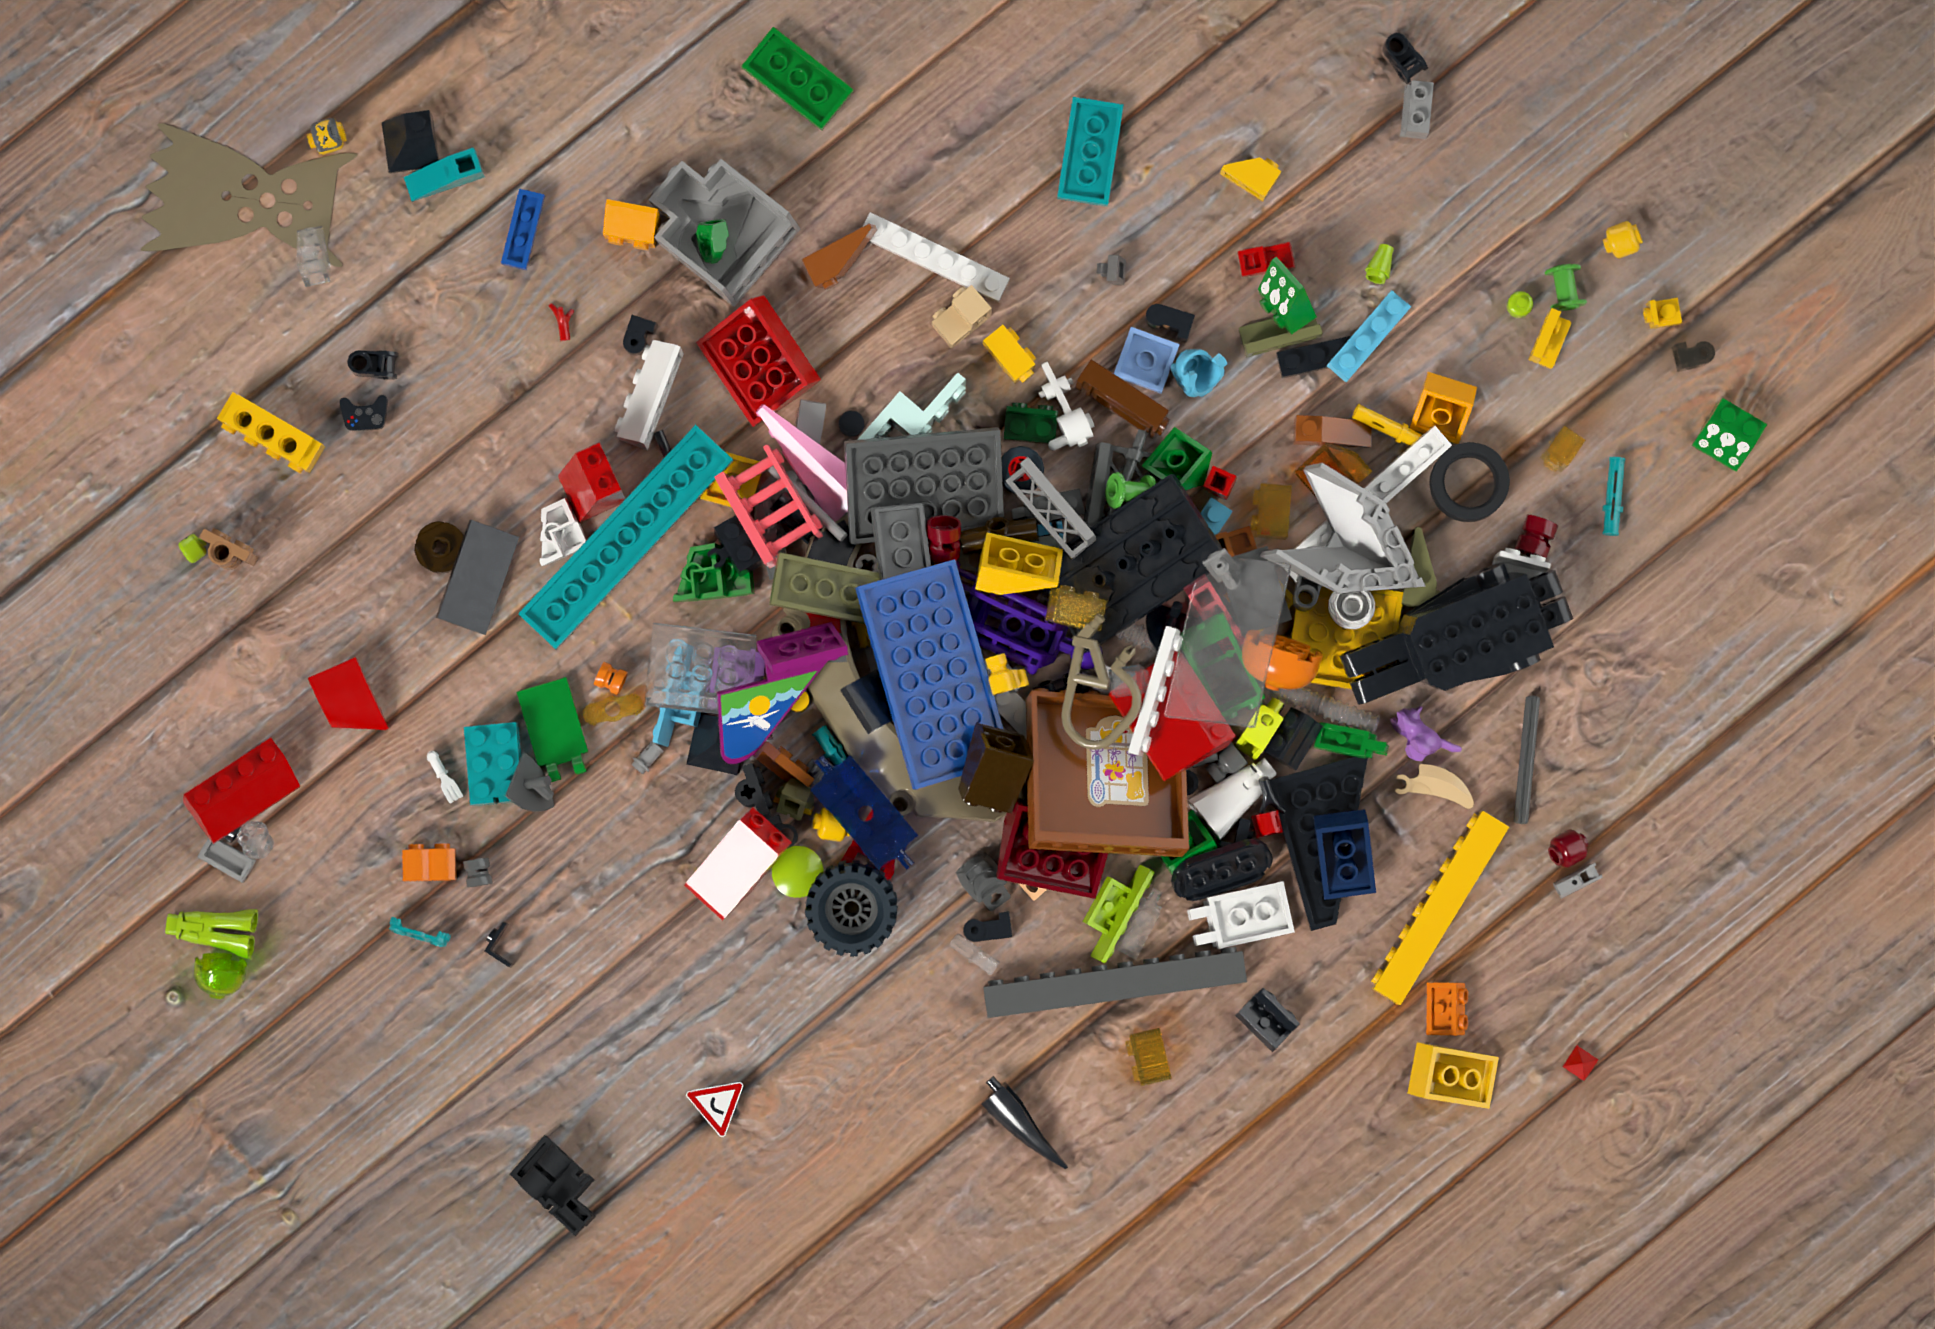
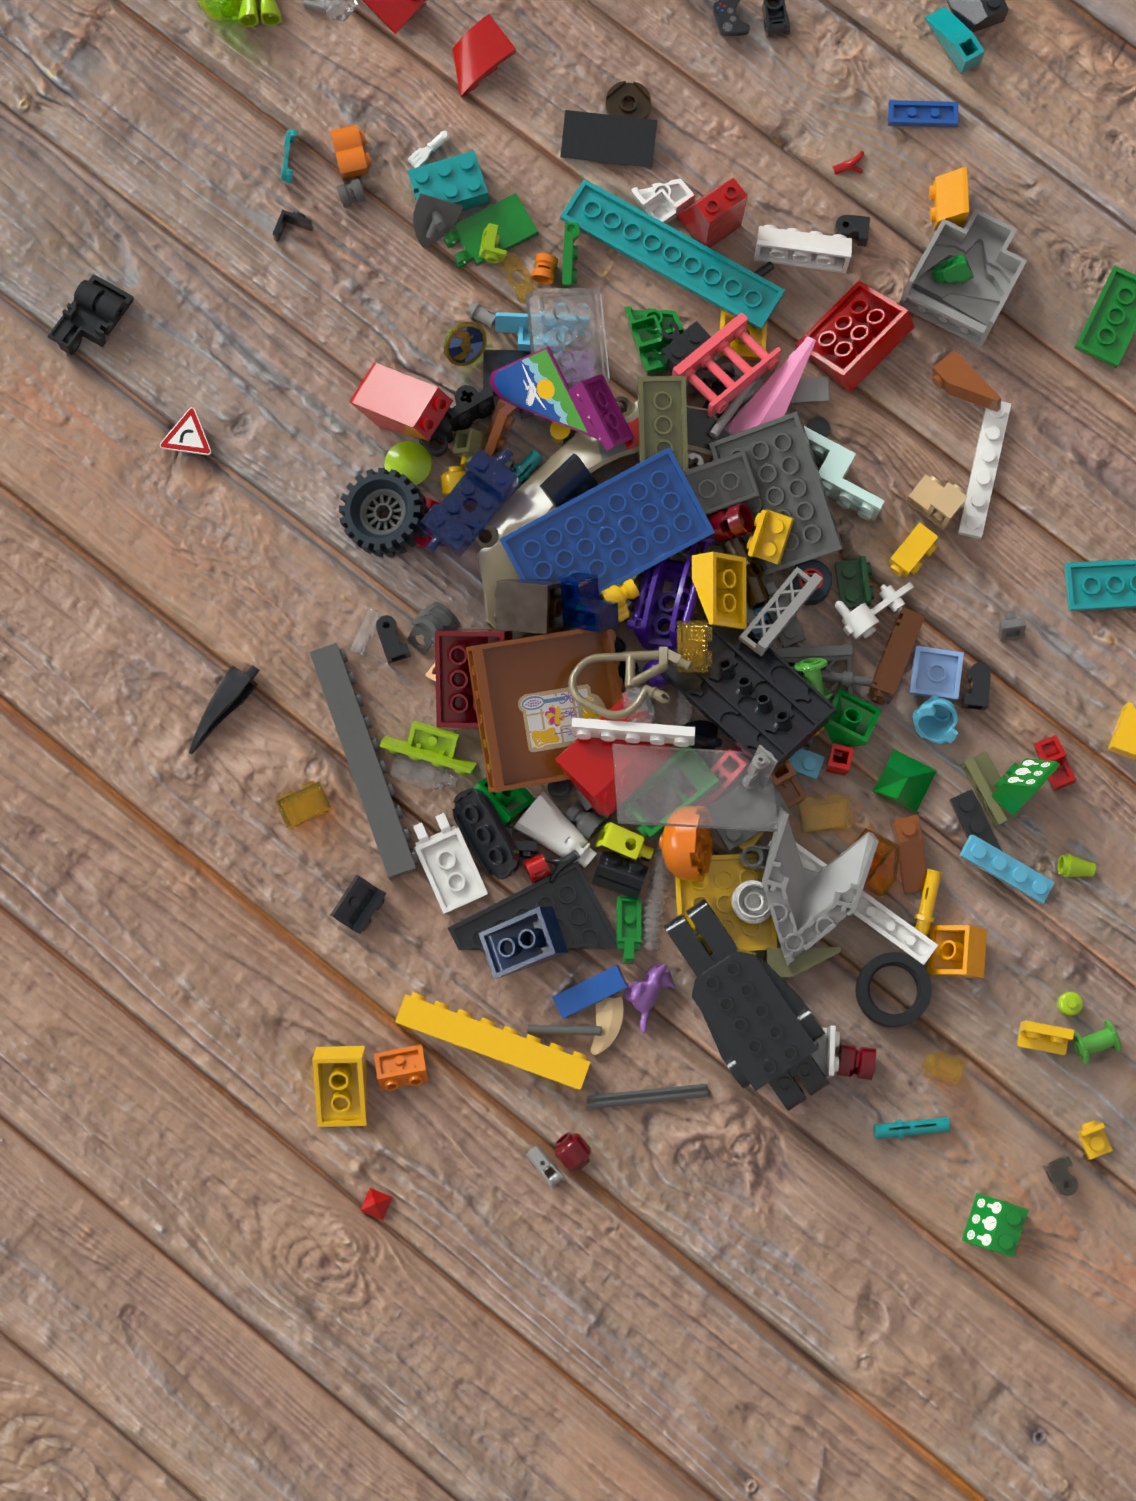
camera: 80 degrees right, 5 degrees down
(572, 733) = (489, 245): none -> lime bracket
(601, 647) = (570, 253): none -> green hinge
(678, 783) = (465, 343): none -> shield
(967, 500) = (770, 536): none -> yellow bracket
(1008, 715) = (583, 607): none -> clear blue brick
(1252, 419) = (904, 781): none -> green slope
(1408, 795) = (590, 991): none -> blue tile
(1441, 831) = (564, 1030): none -> dark grey bar

